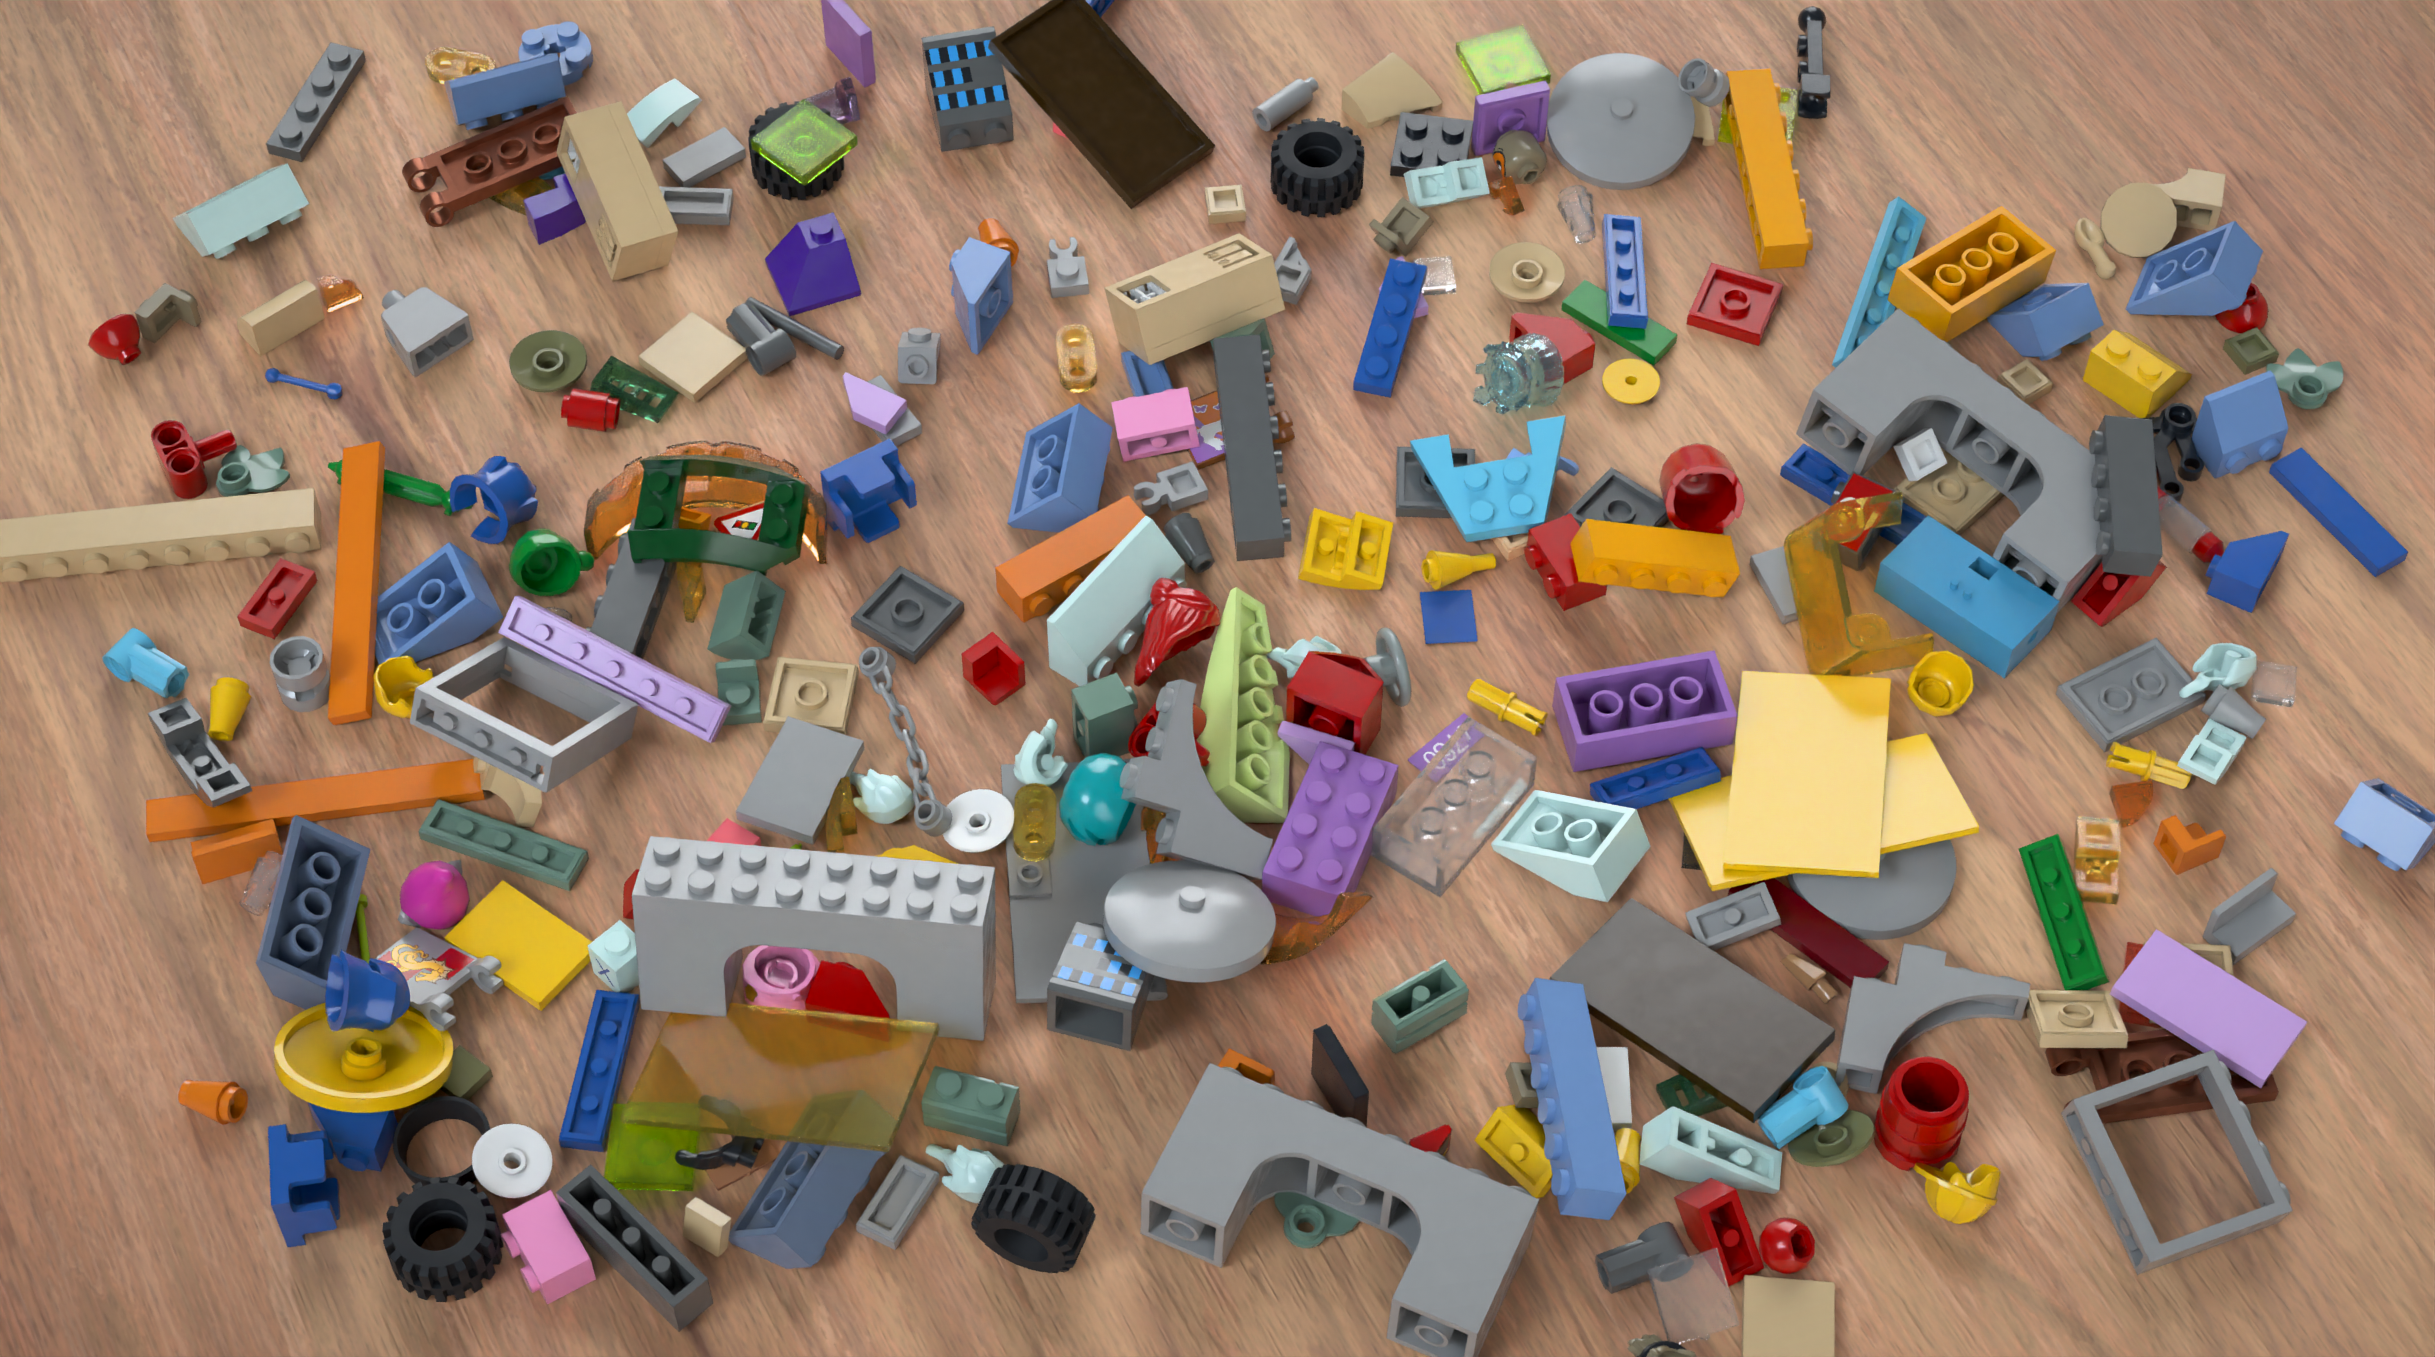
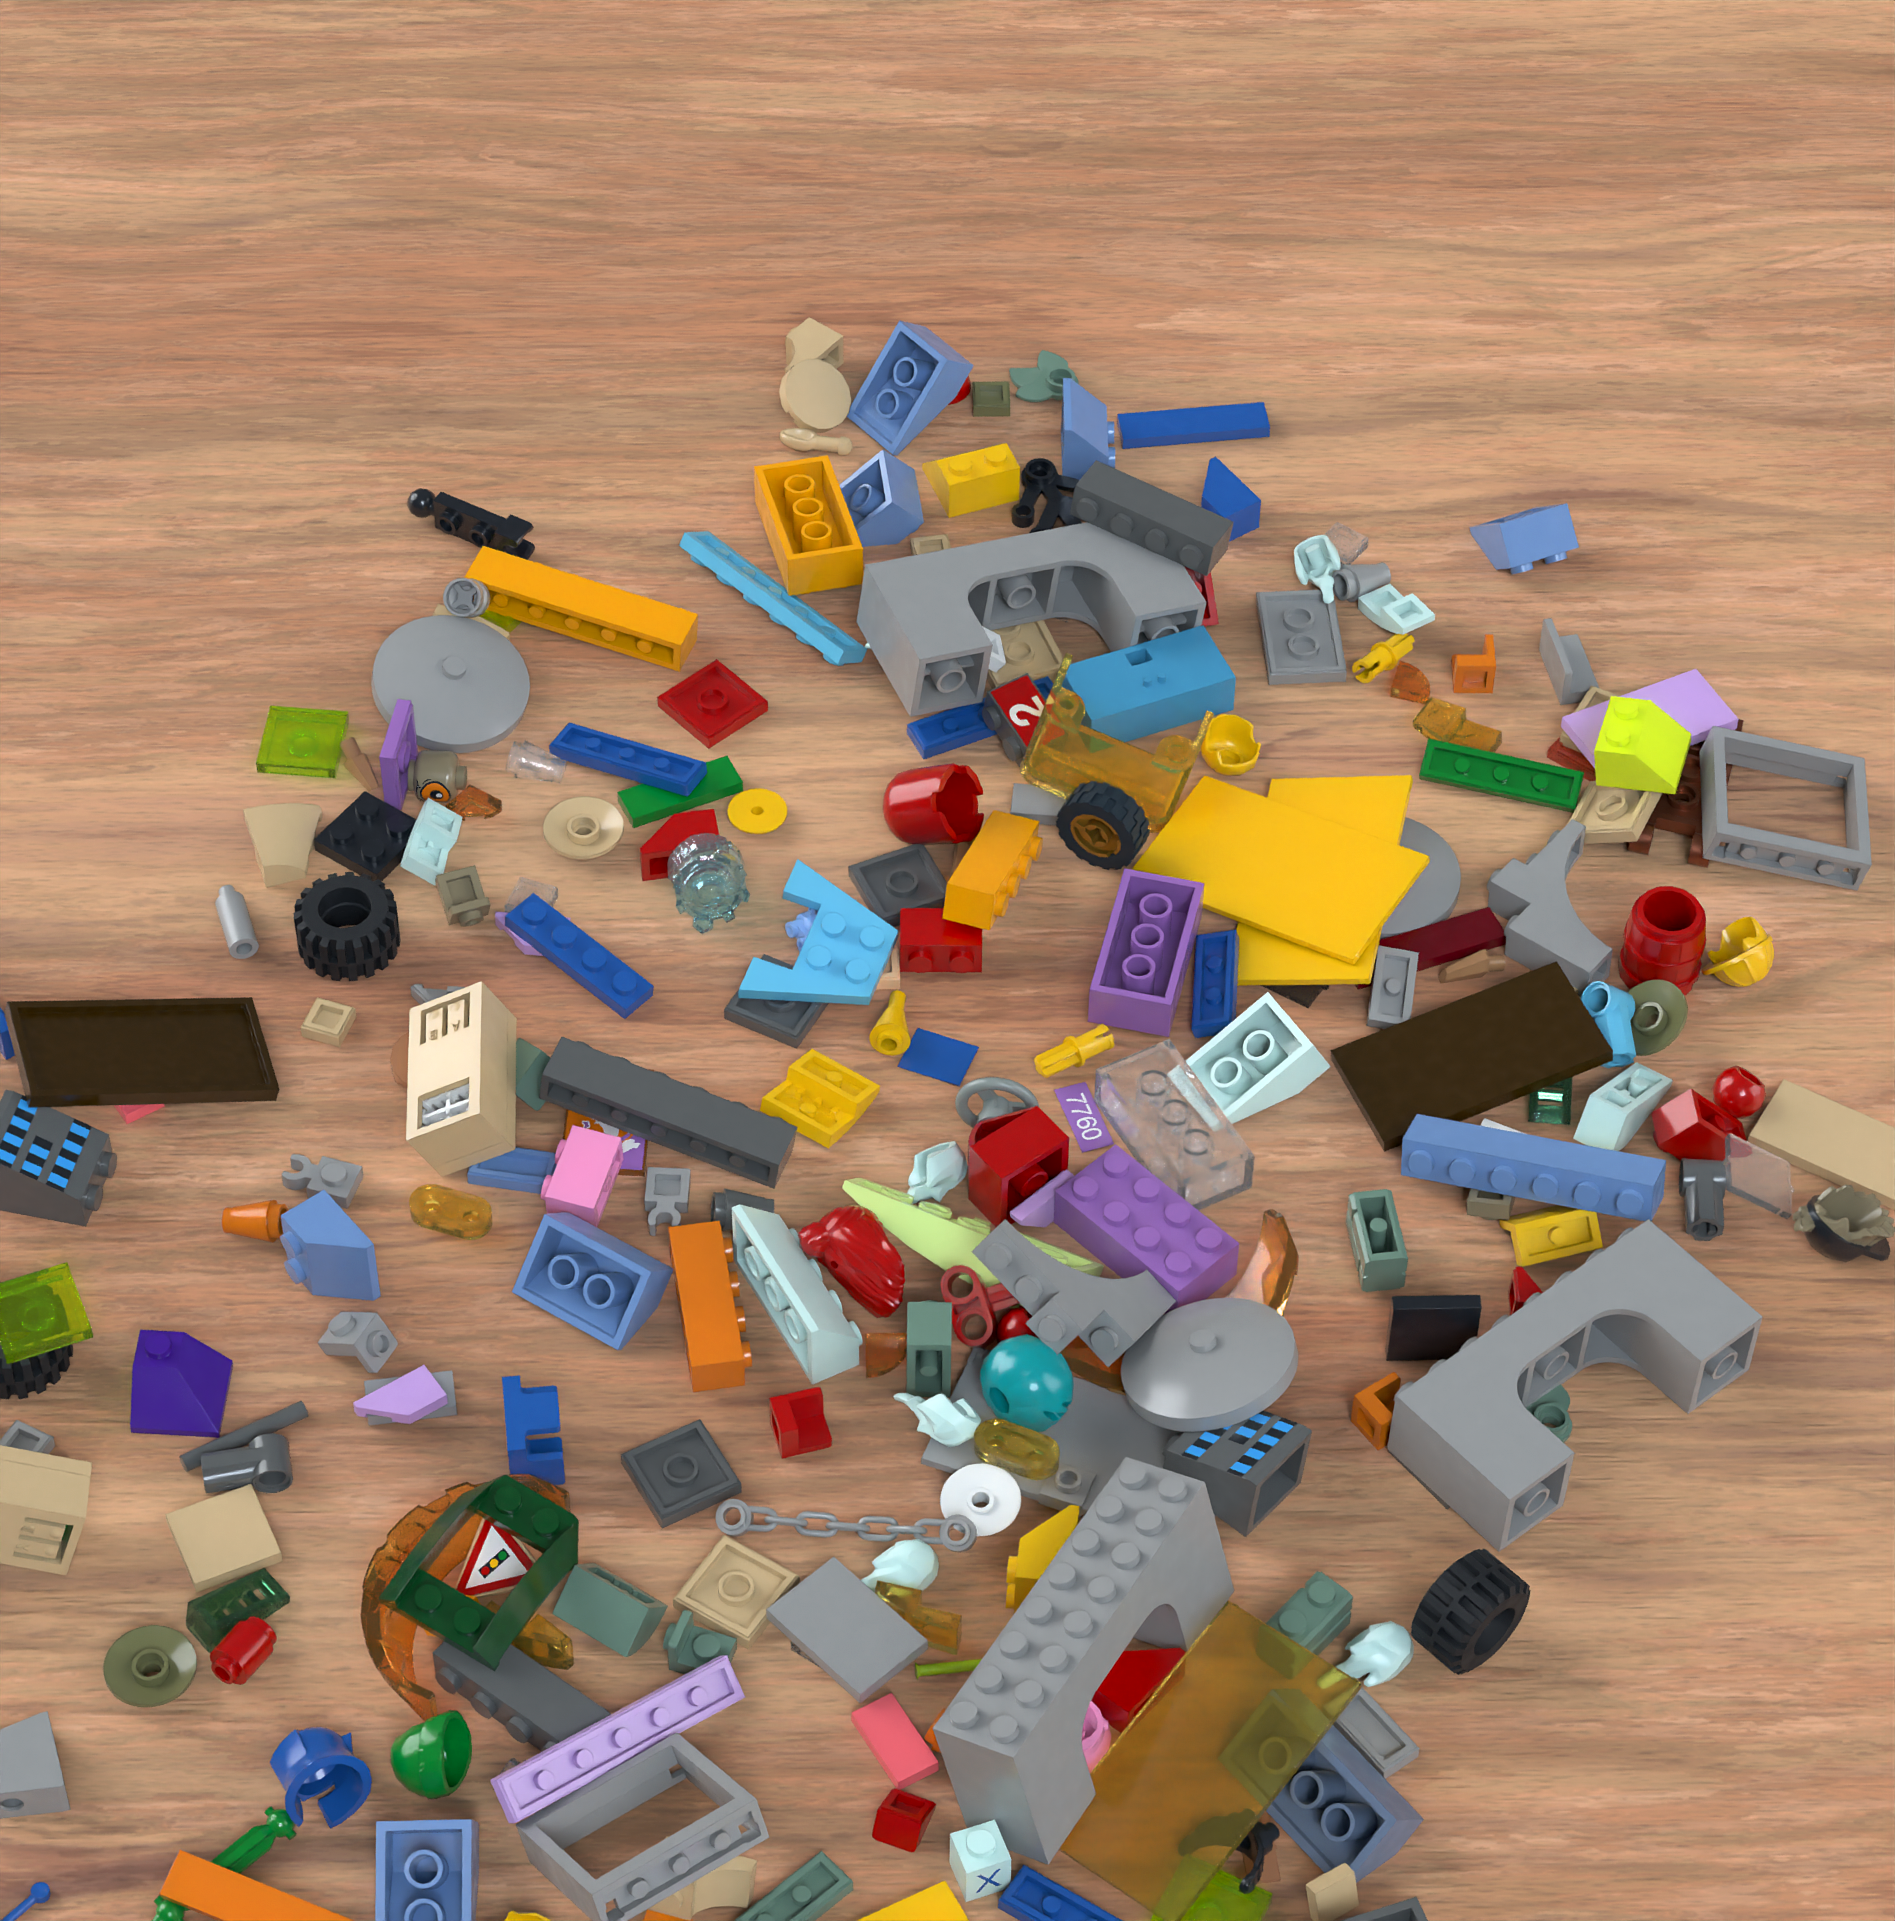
camera: 65 degrees left, 5 degrees down
(1763, 619) = (1103, 825): none -> black wheel
(2142, 998) = (1640, 747): none -> neon yellow slope

